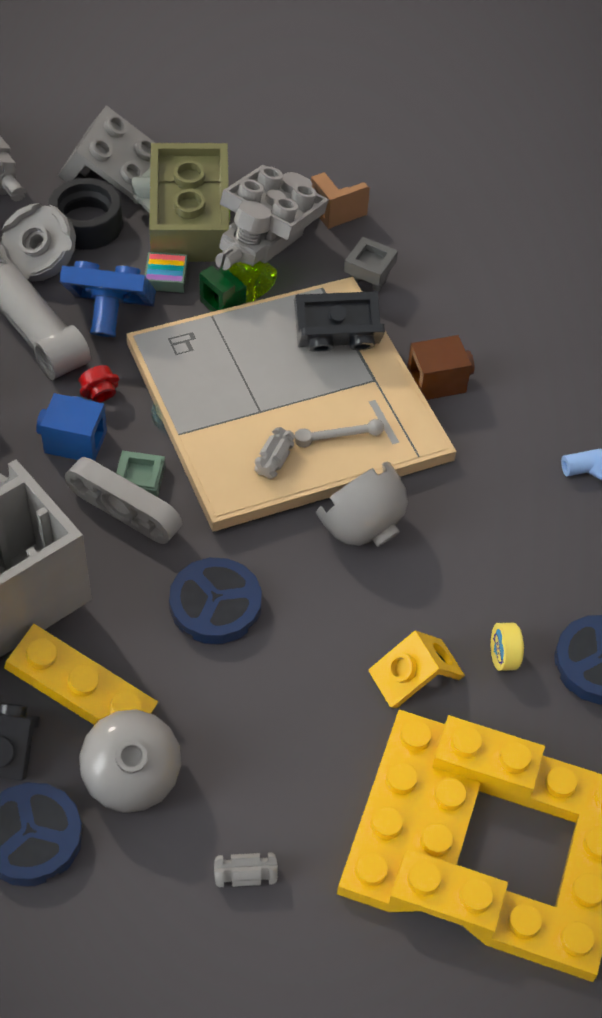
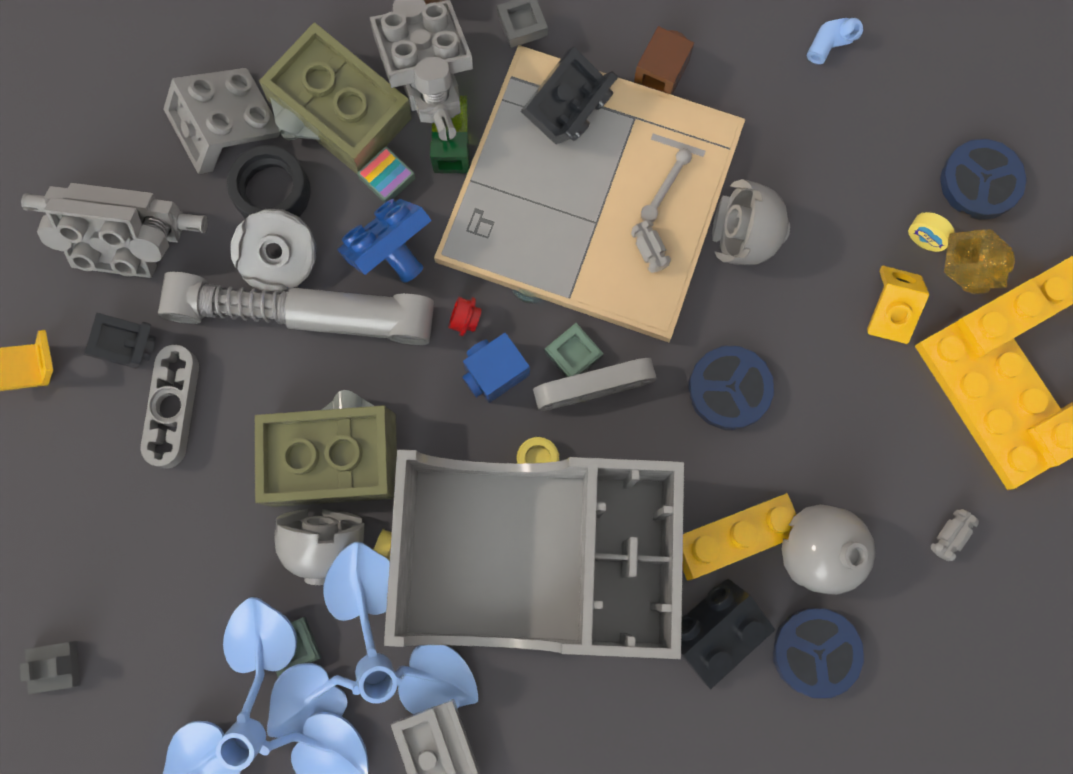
camera: 45 degrees left, 25 degrees up
(515, 692) = (978, 260): none -> clear yellow brick

